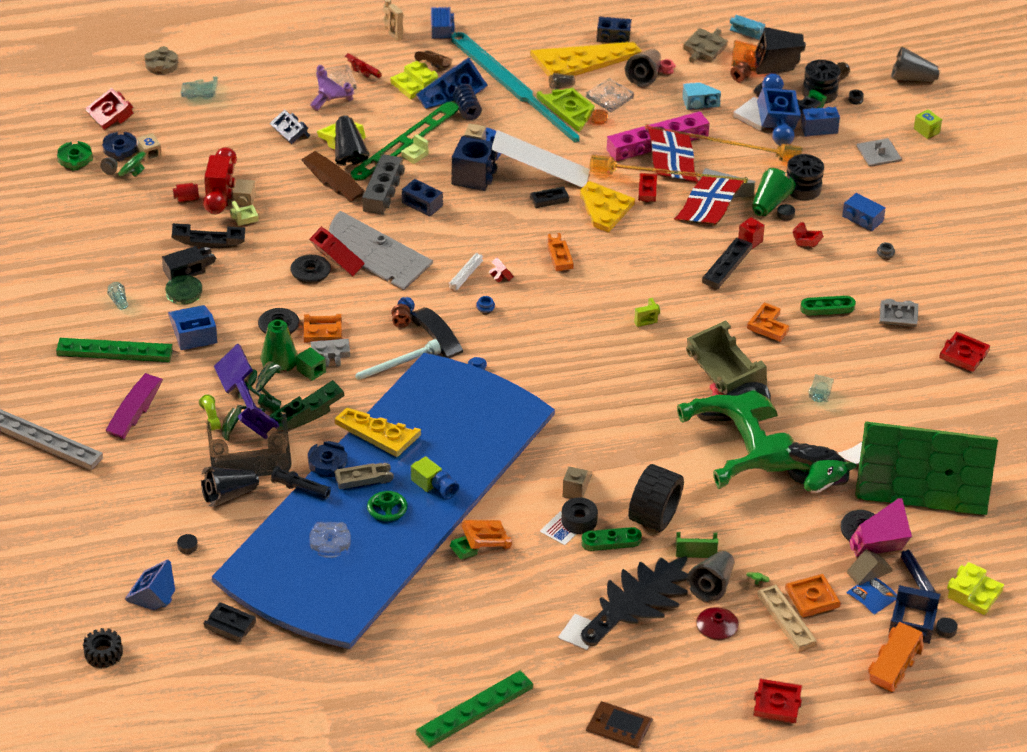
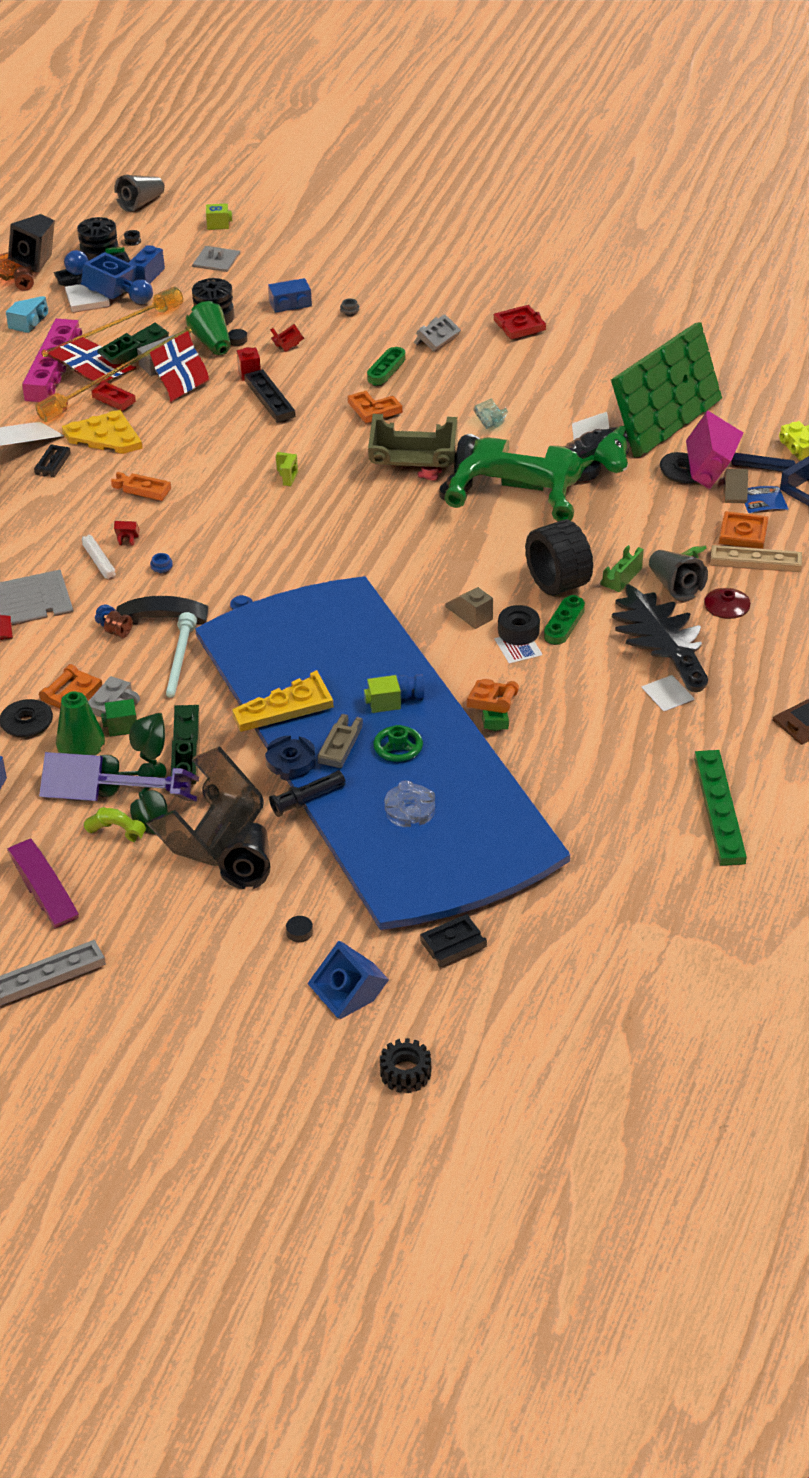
camera: 55 degrees left, 0 degrees up
(697, 161) = (125, 347): none -> dark green slope

